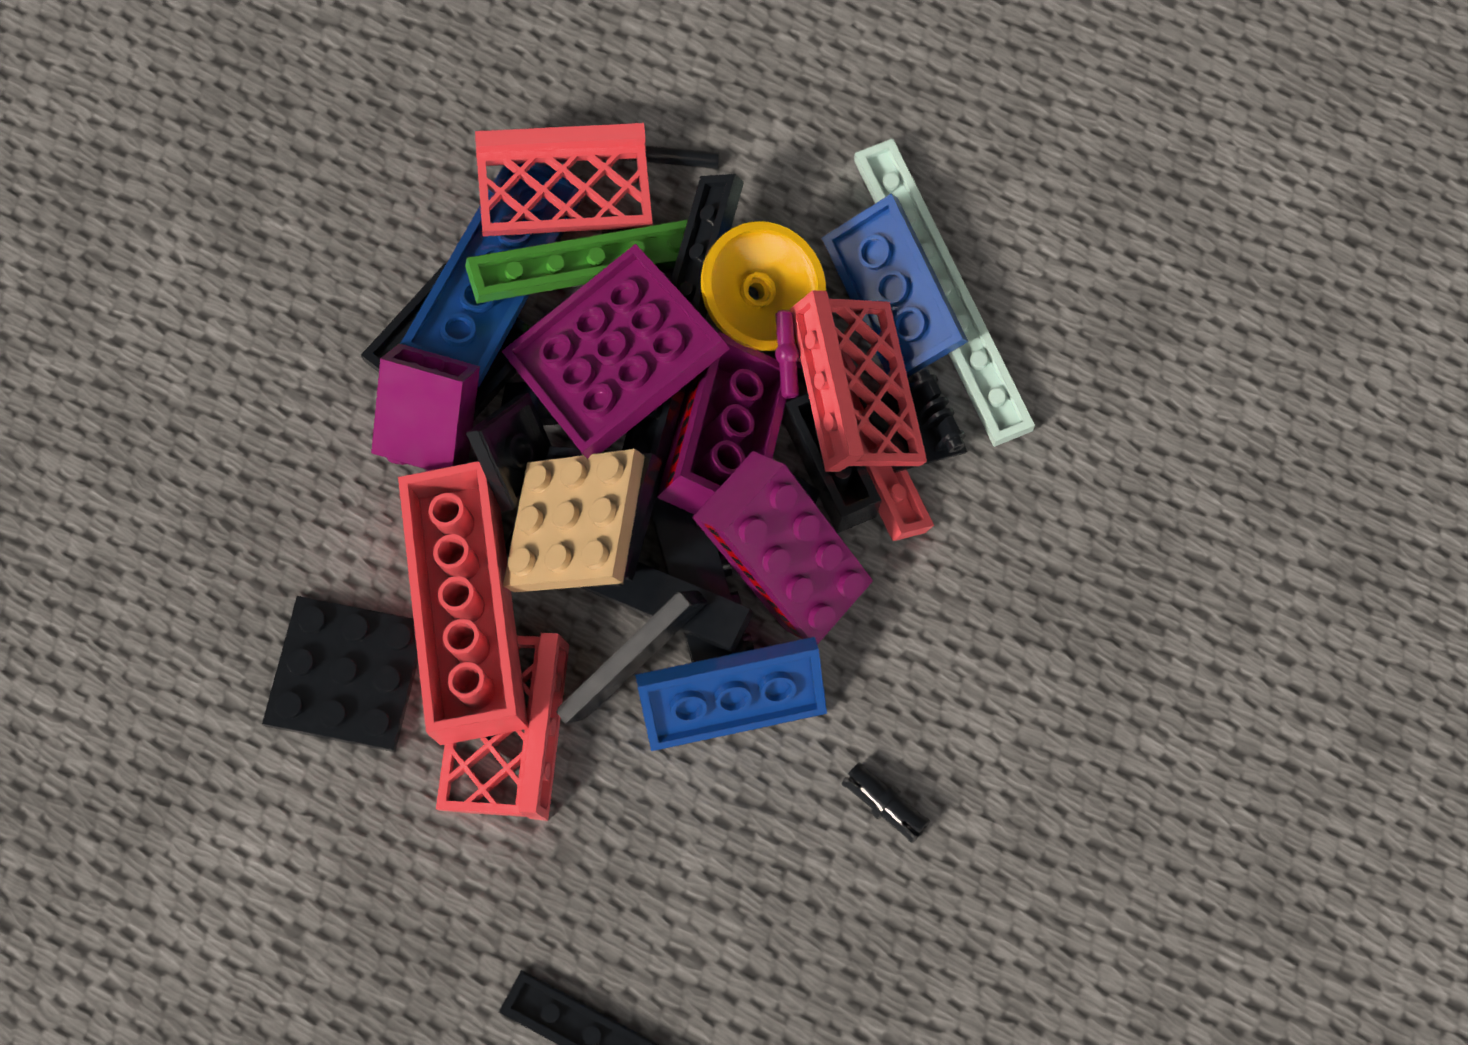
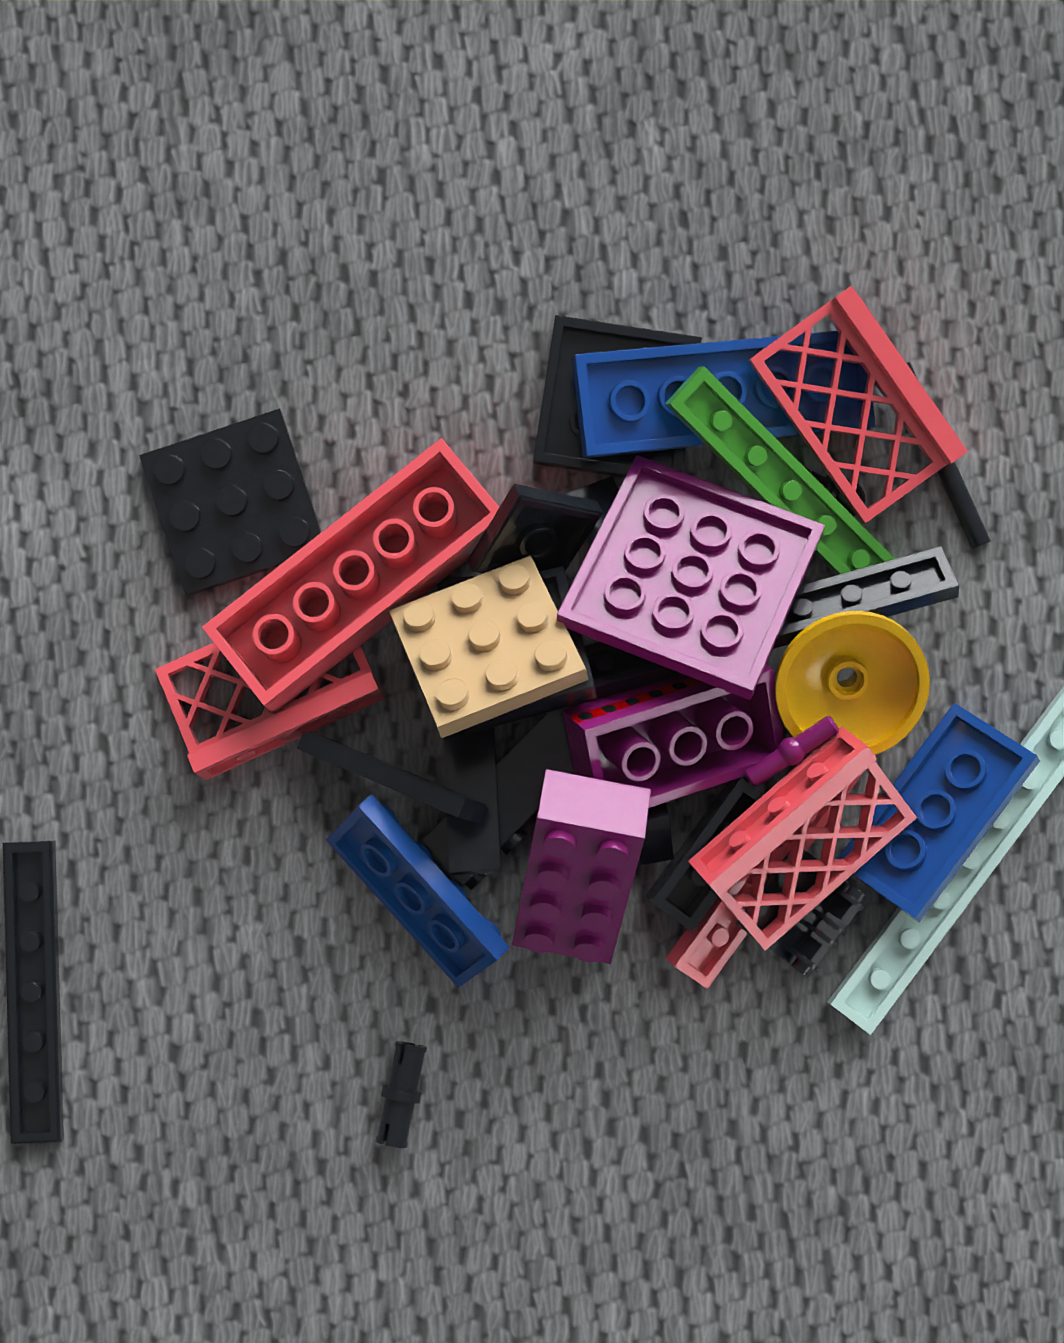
camera: 60 degrees right, 15 degrees up
(424, 408) = (527, 419): magenta brick -> none

